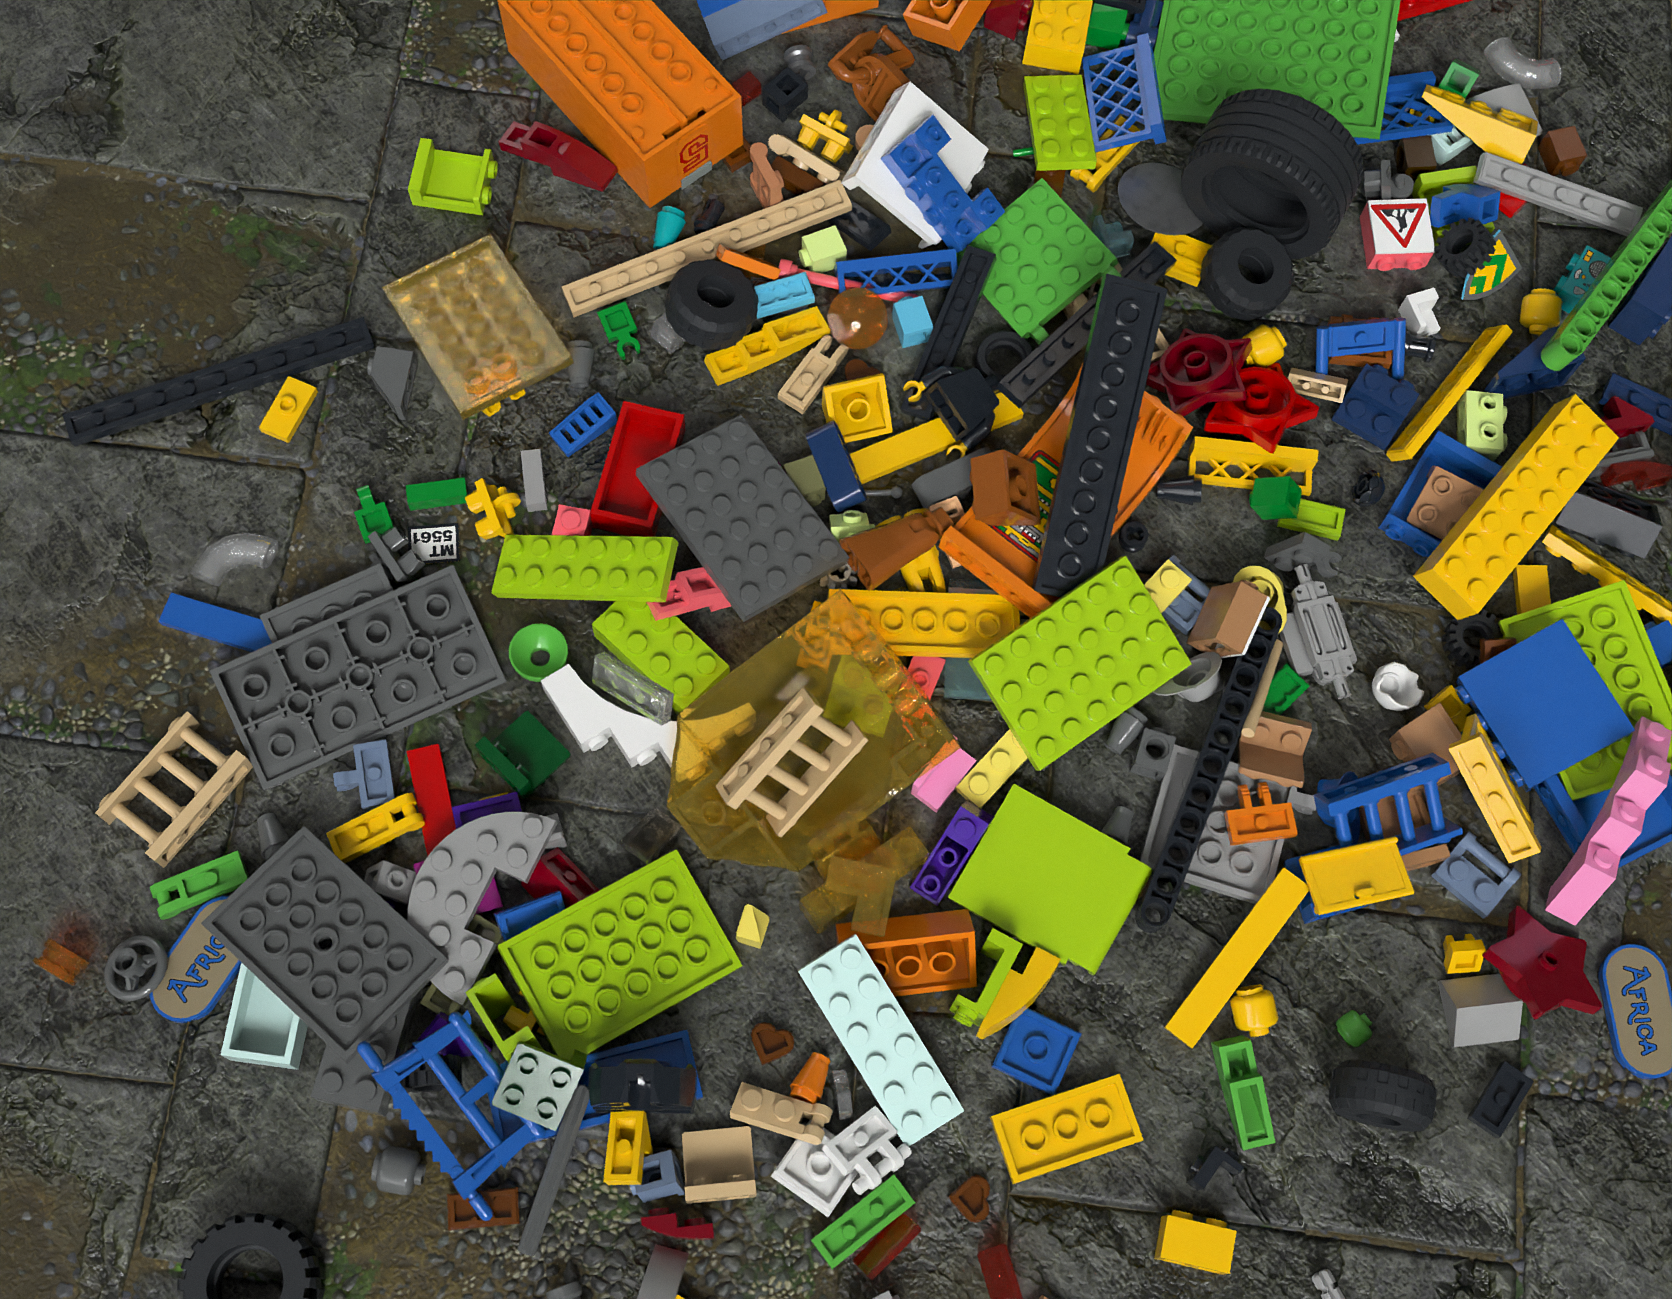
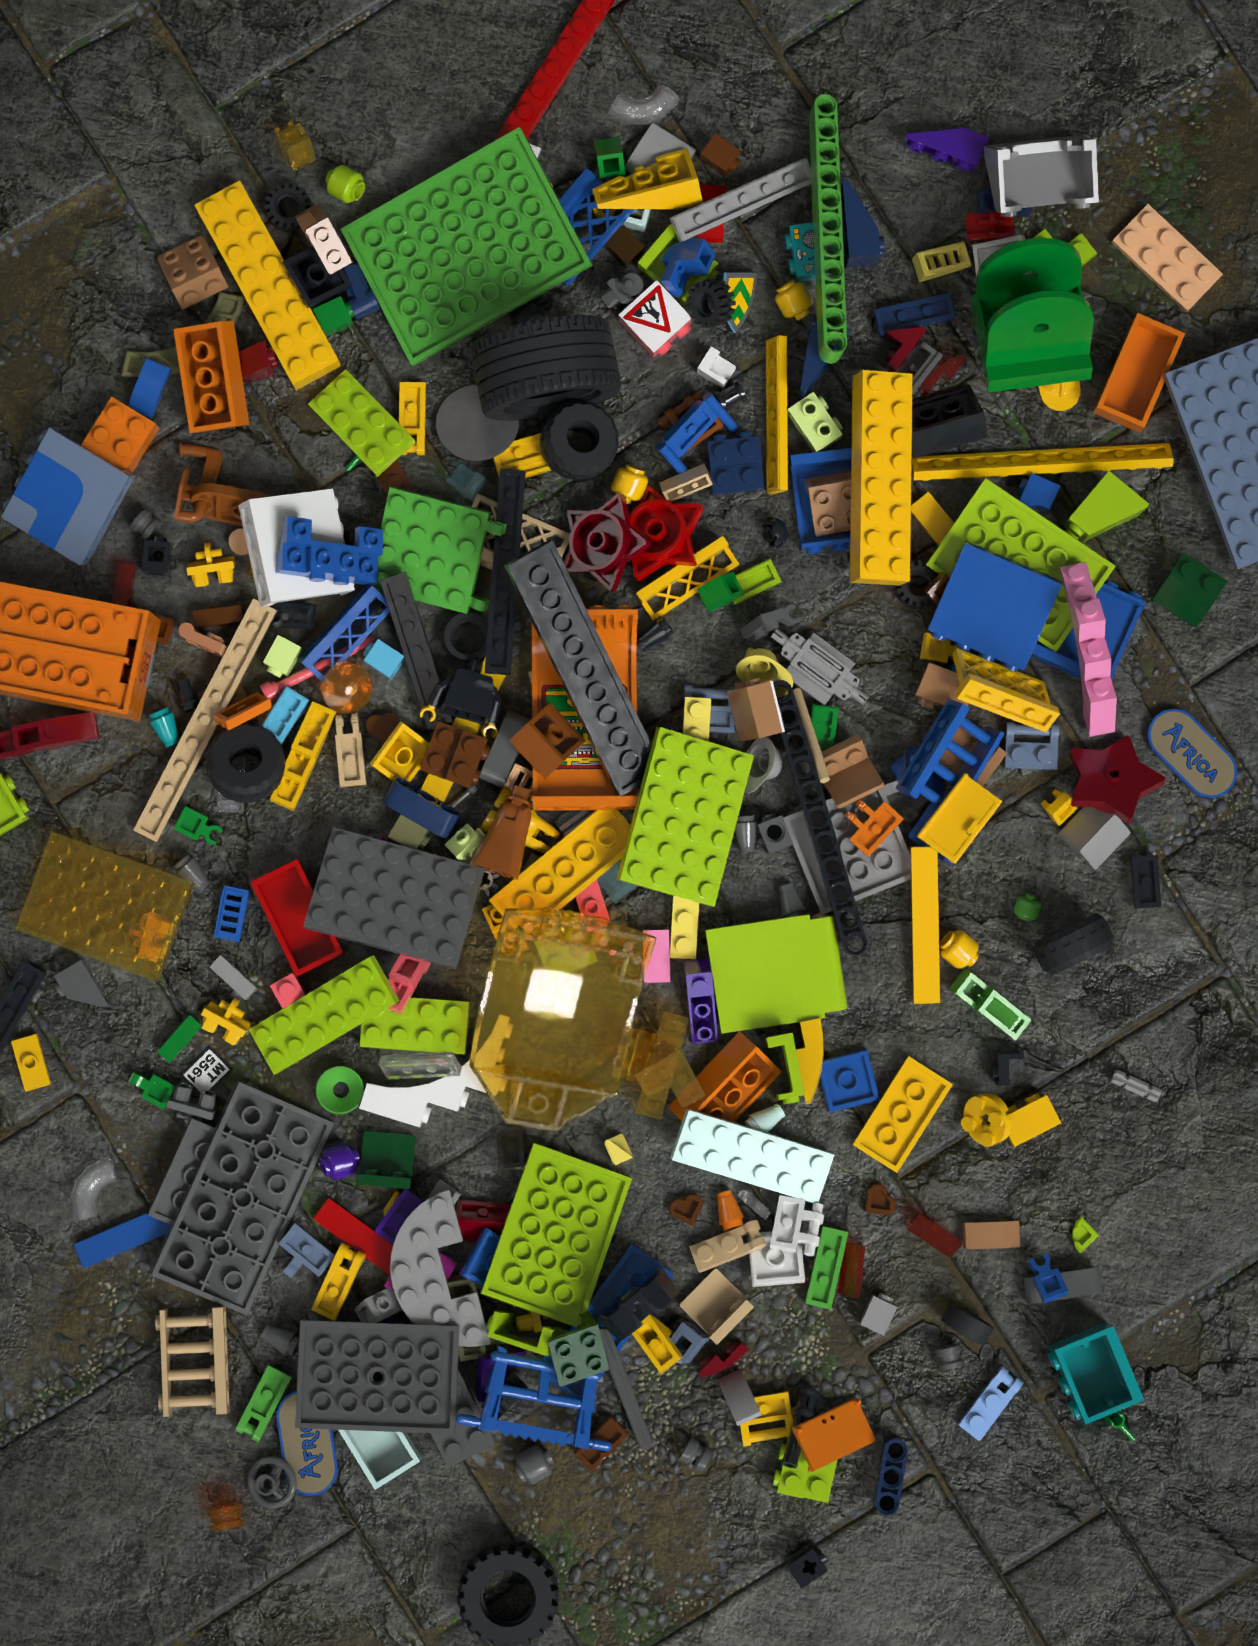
camera: 35 degrees left, 15 degrees up
(479, 717) = (339, 1161): none -> dark purple head
(773, 744) = (546, 1035): tan fence -> none
(805, 158) = (214, 595): tan hinge -> none
(906, 446) = (454, 755): none -> reddish brown plate
(925, 1018) = (765, 1119): none -> light aqua cone
(1134, 545) = (643, 686): black bush -> none
(1136, 1198) = (975, 1123): none -> yellow plate
(1148, 96) = (401, 348): blue fence -> none
(1396, 687) = (893, 661): white hair -> none

